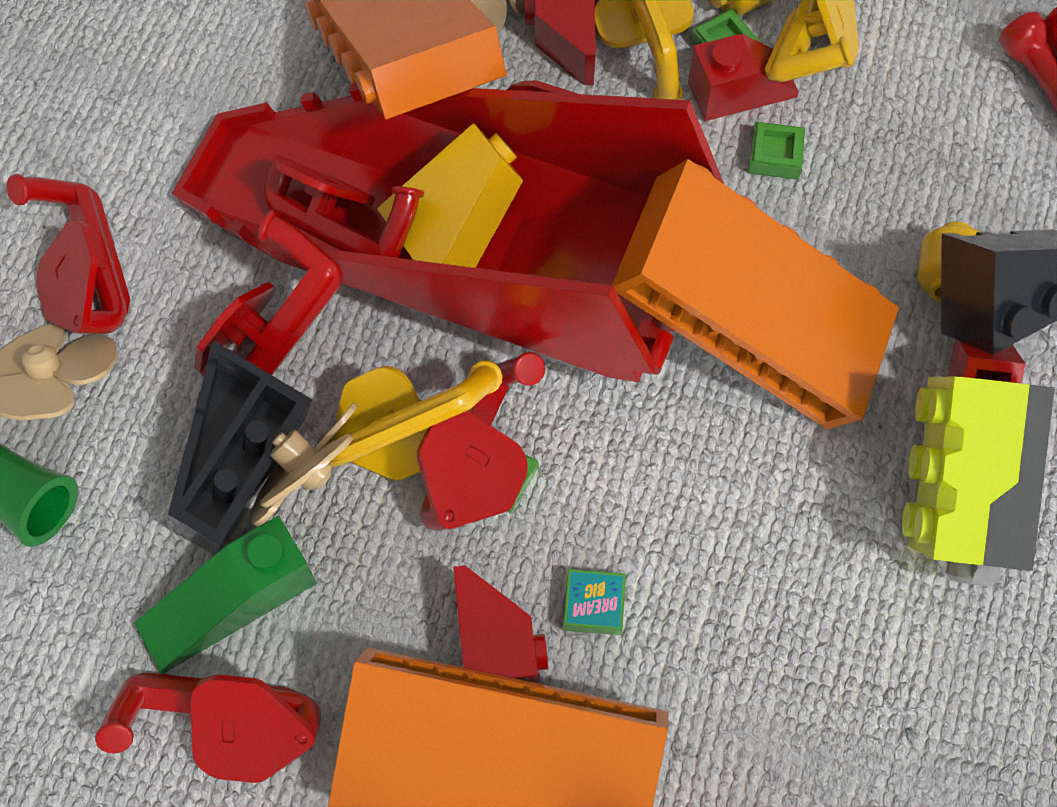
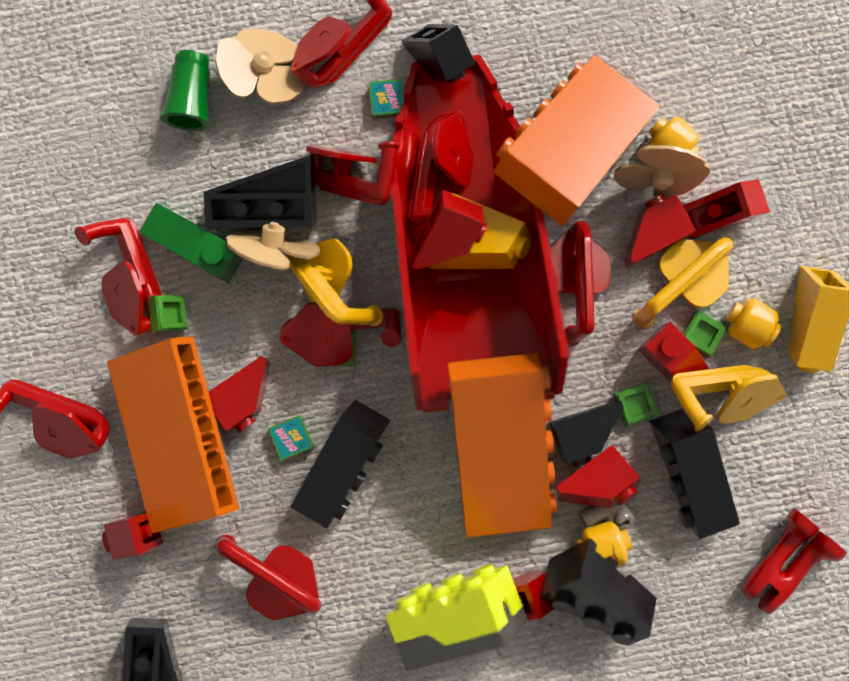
camera: 65 degrees right, 20 degrees up
(182, 142) = (440, 51): none -> black slope
(197, 246) = (386, 98): none -> tile
(310, 683) = (167, 313): none -> bright green tile
(429, 206) = (448, 231): none -> red slope
(678, 542) = (341, 464): none -> black wedge
(791, 200) = (585, 432): none -> black slope
(809, 721) = (280, 585): none -> red piece
(865, 219) = (601, 482): none -> red slope
(900, 113) = (695, 474): none -> black wedge
(904, 246) = (618, 514): none -> light grey arm

